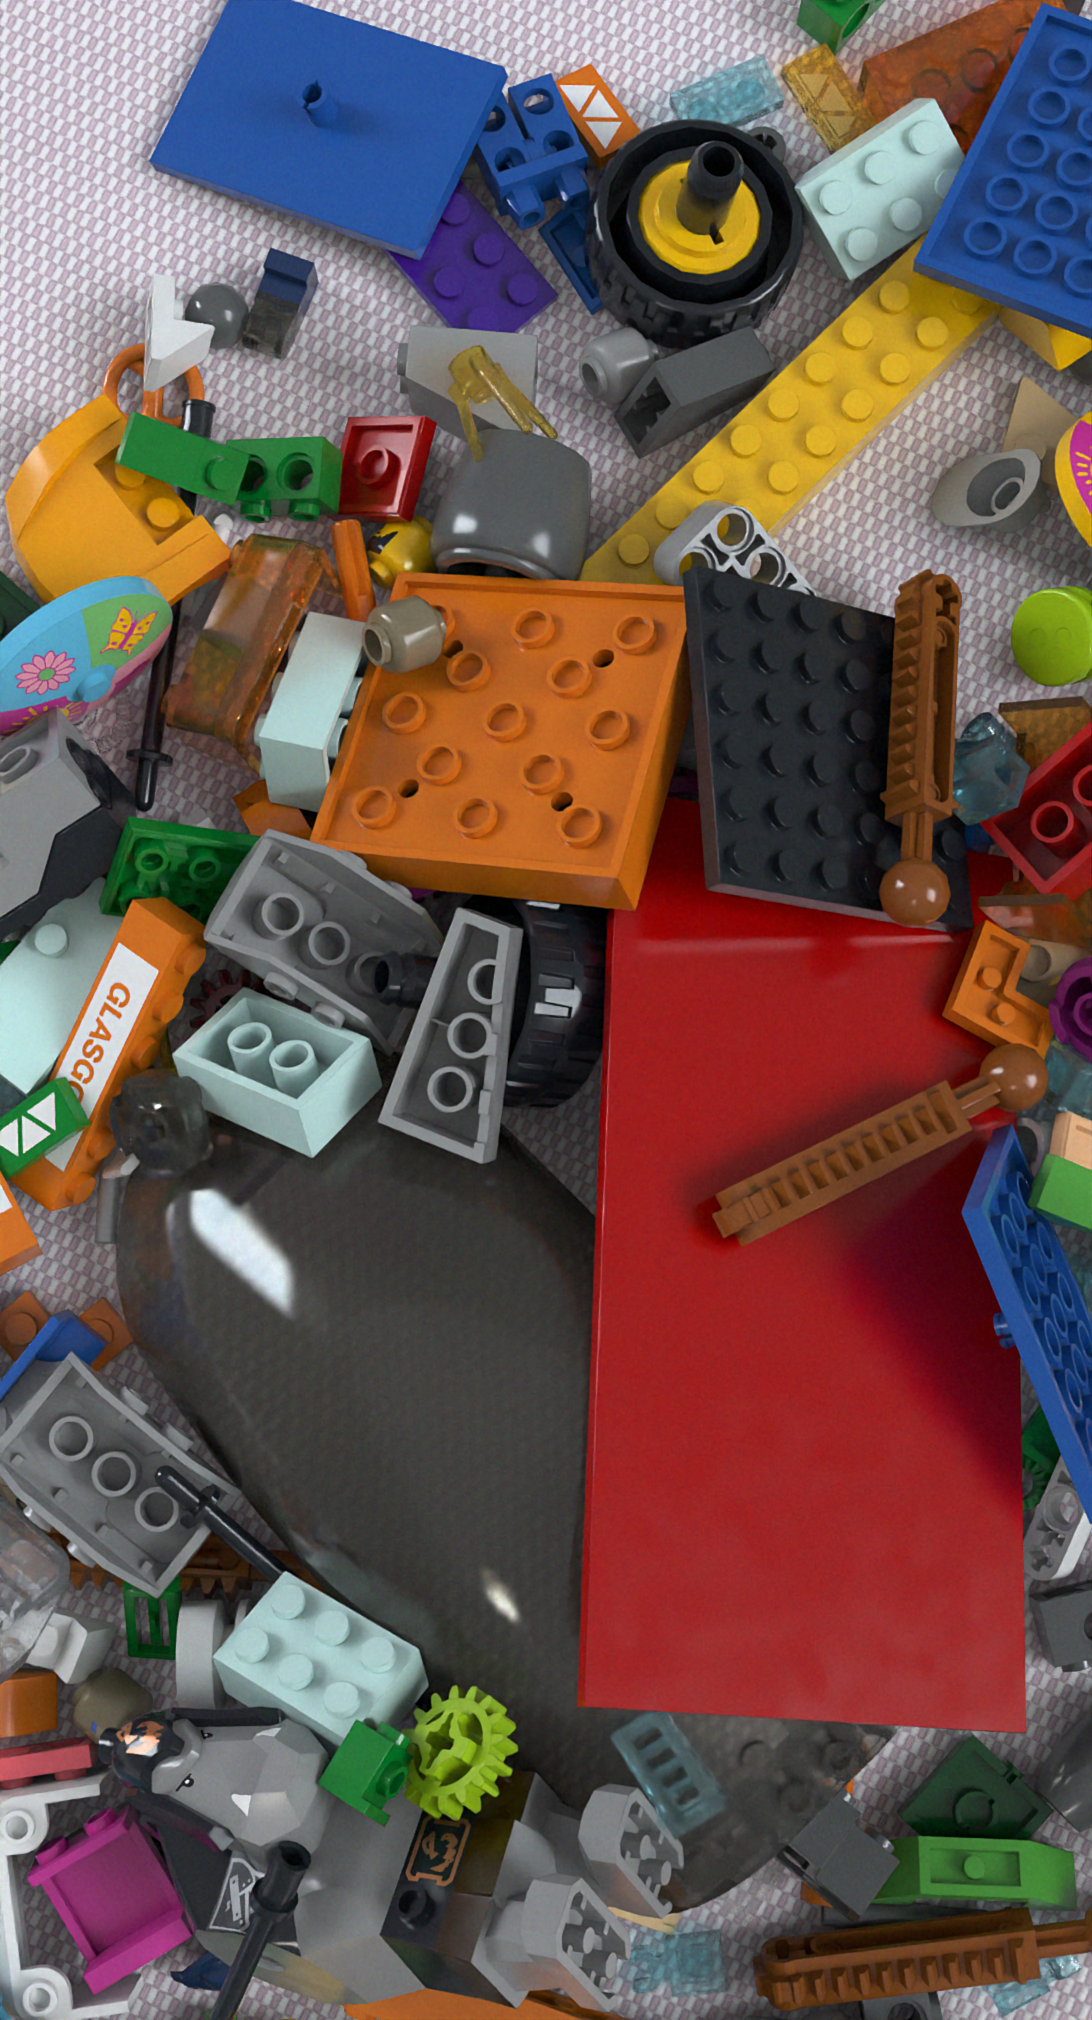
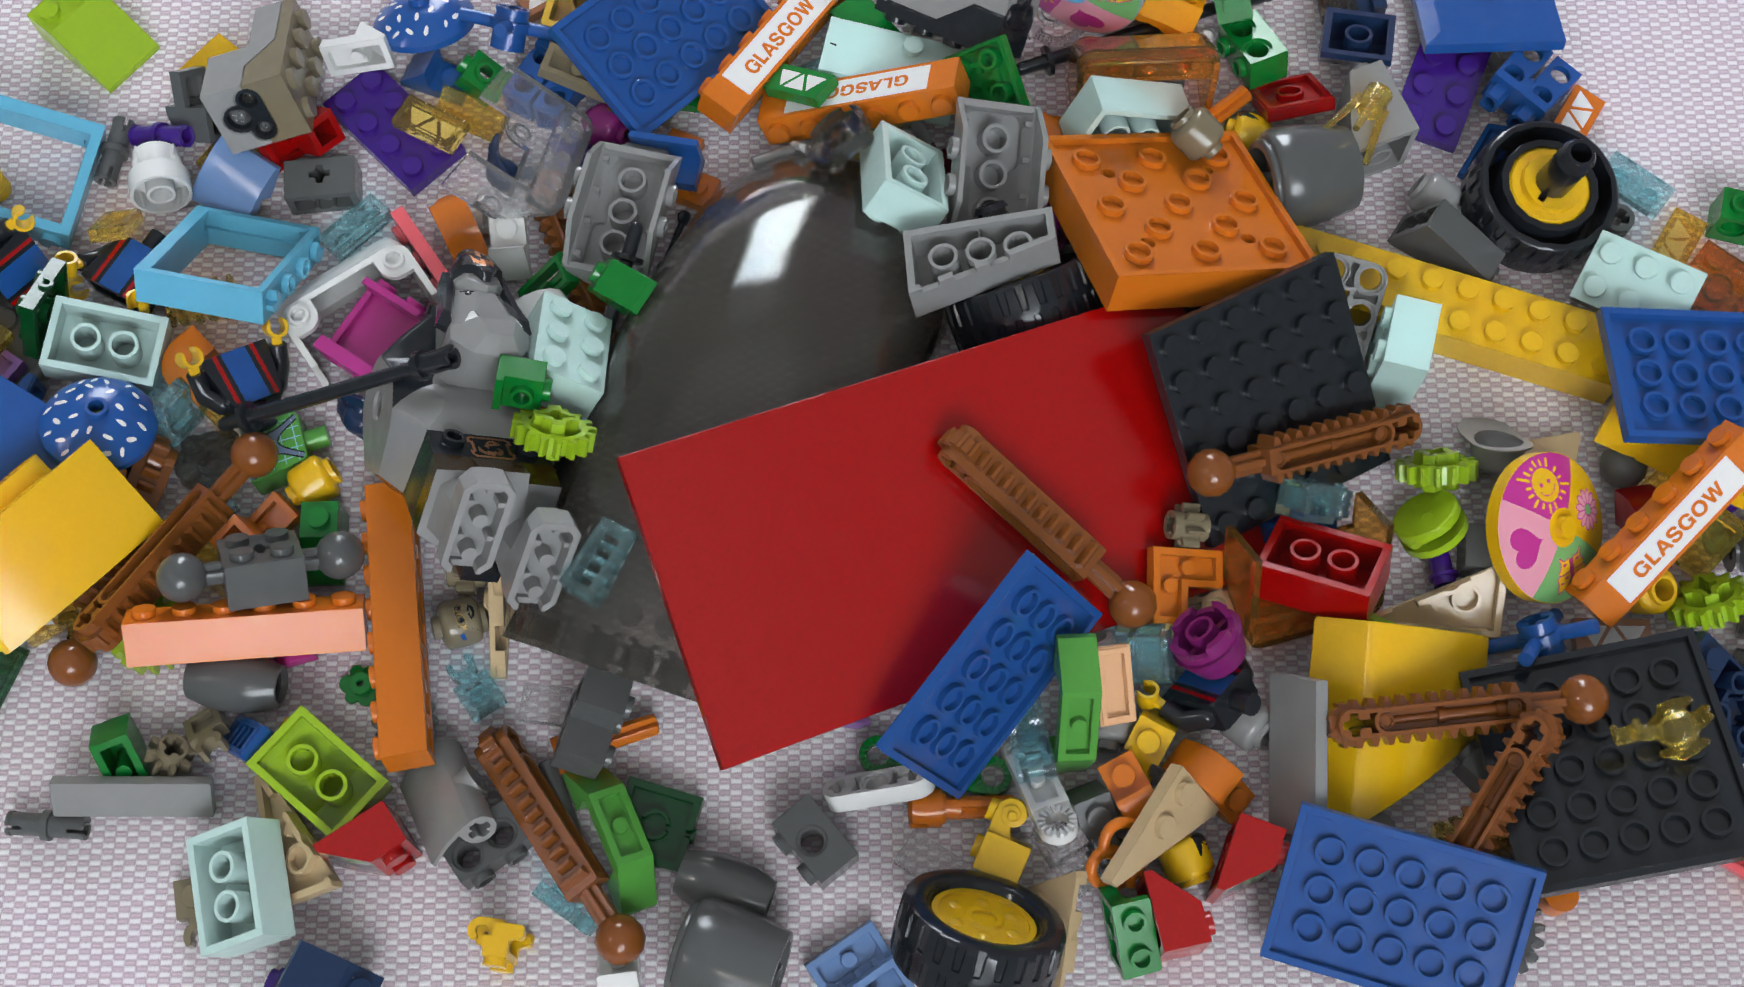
camera: 65 degrees right, 15 degrees down
(131, 1373) = (683, 219): none -> black hinge
(256, 1543) = (620, 286): none -> green slope
(346, 333) = (1356, 37): none -> dark blue slope
(837, 539) = (1401, 349): none -> light aqua brick
(941, 951) = (1187, 525): none -> dark tan gear
(1001, 586) = (1436, 469): none -> lime gear

